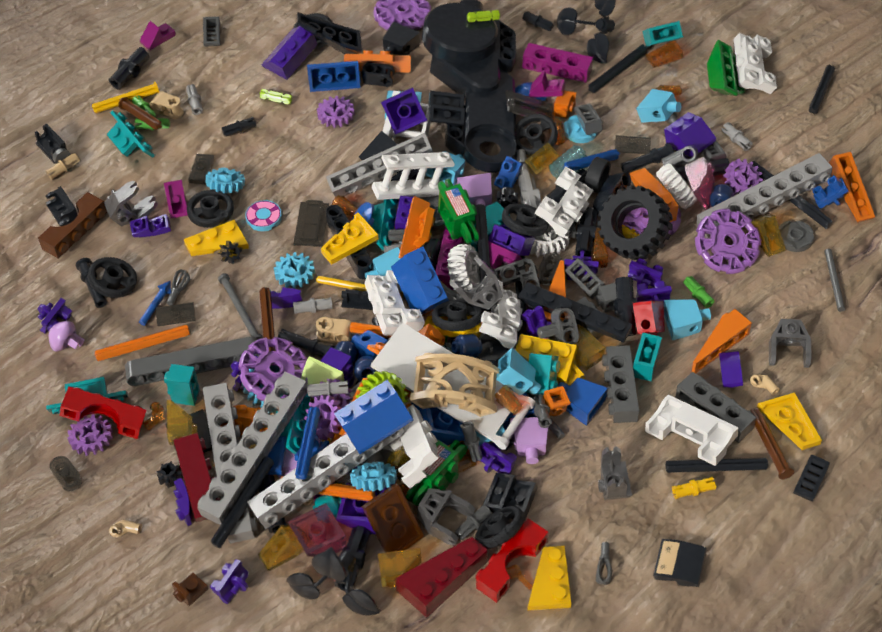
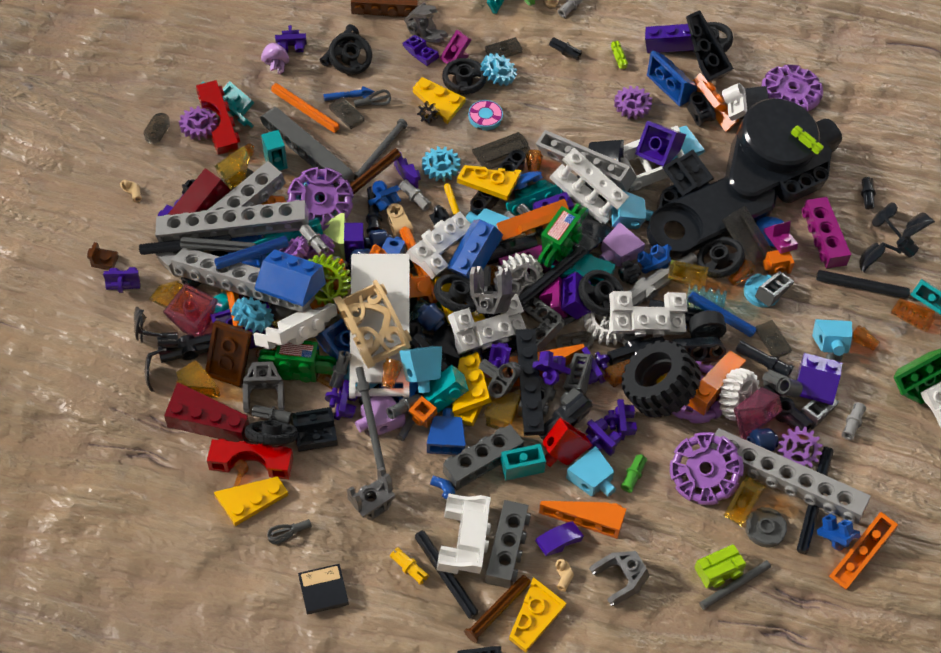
camera: 55 degrees right, 5 degrees up
(270, 471) = (214, 245): none -> dark grey axle
(301, 325) = (384, 196): none -> blue hips
(397, 45) = (736, 100): none -> white plate
(508, 428) = (363, 388): none -> dark grey bar
(575, 289) = (551, 366): none -> dark purple hips
(624, 428) = (444, 484): none -> blue arm
(816, 279) = (720, 566): none -> lime brick

